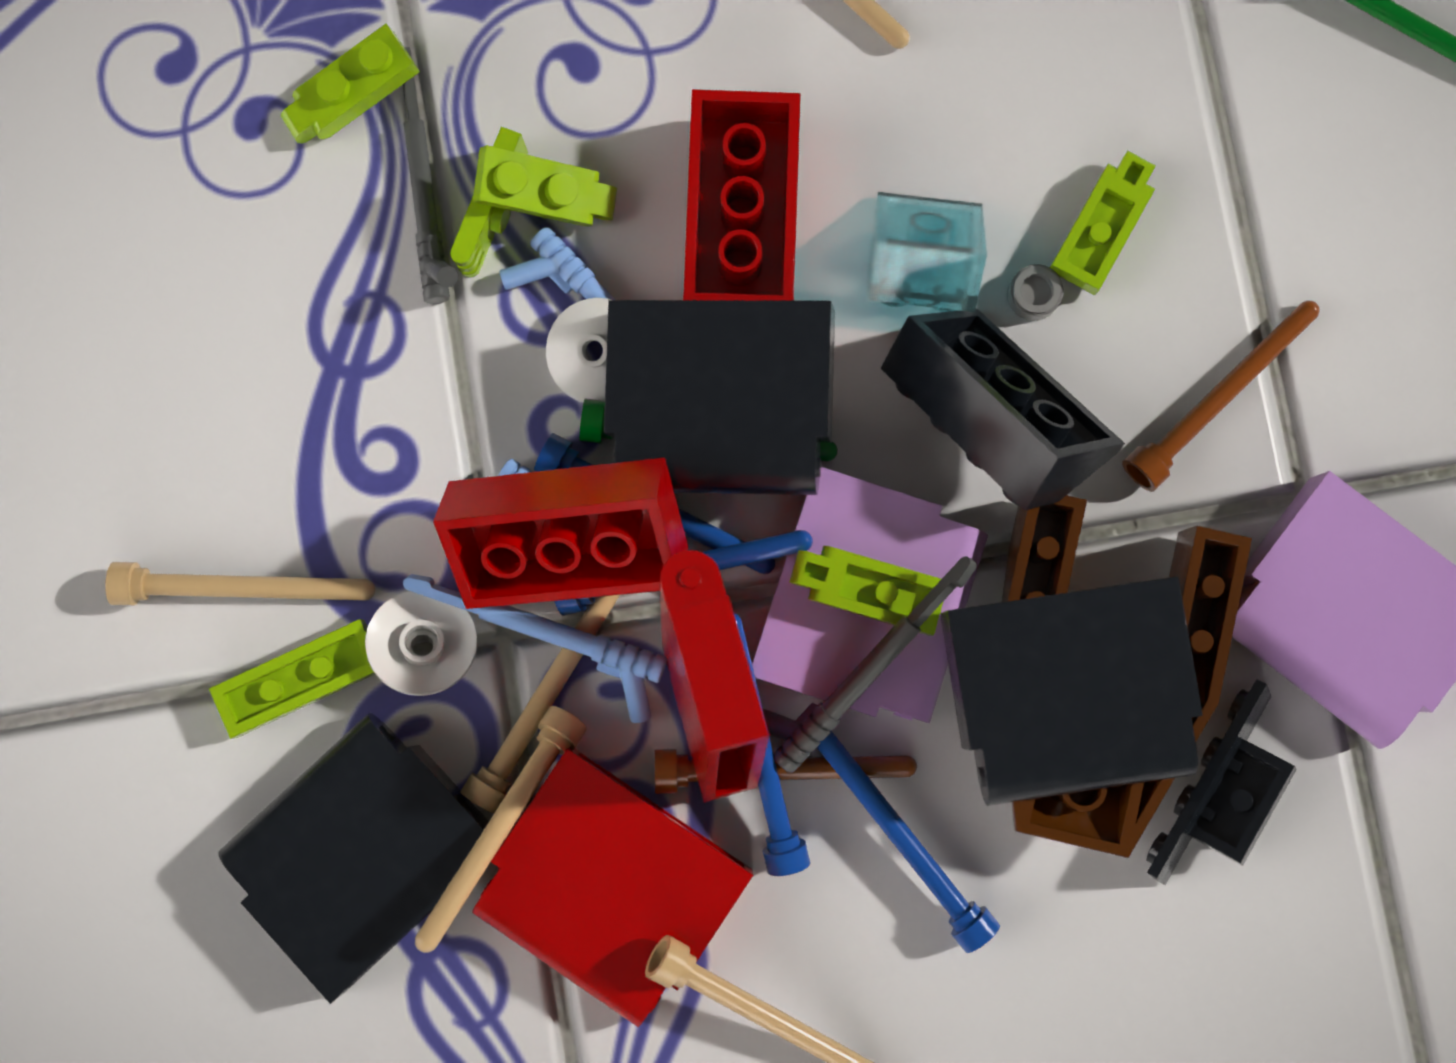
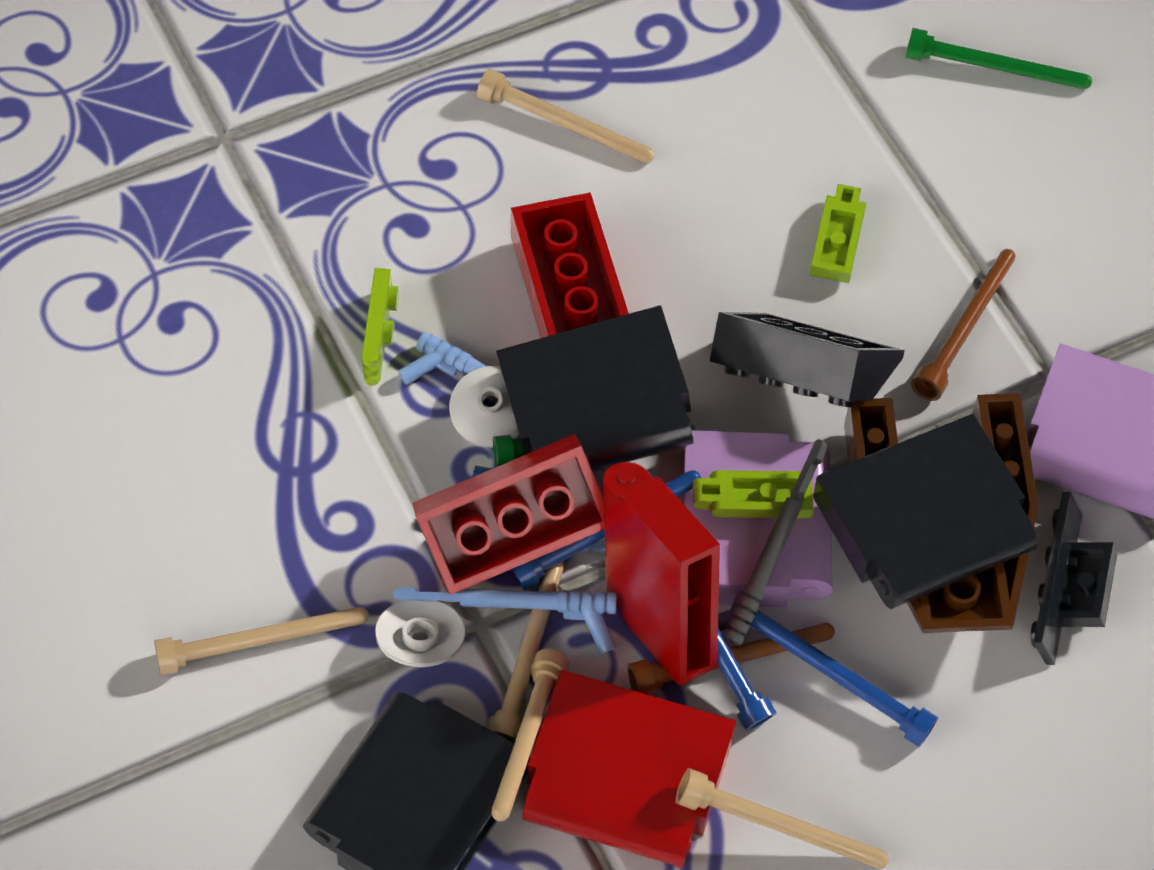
camera: 20 degrees left, 25 degrees down
(293, 680) = (326, 688): lime plate -> none
(349, 86) = (245, 276): lime hinge -> none
(435, 272) = (344, 377): dark grey piece -> none
(541, 187) = (417, 302): lime hinge -> none
(927, 252) = (716, 282): clear light blue slope -> none
(1035, 292) = (805, 291): light grey tile -> none

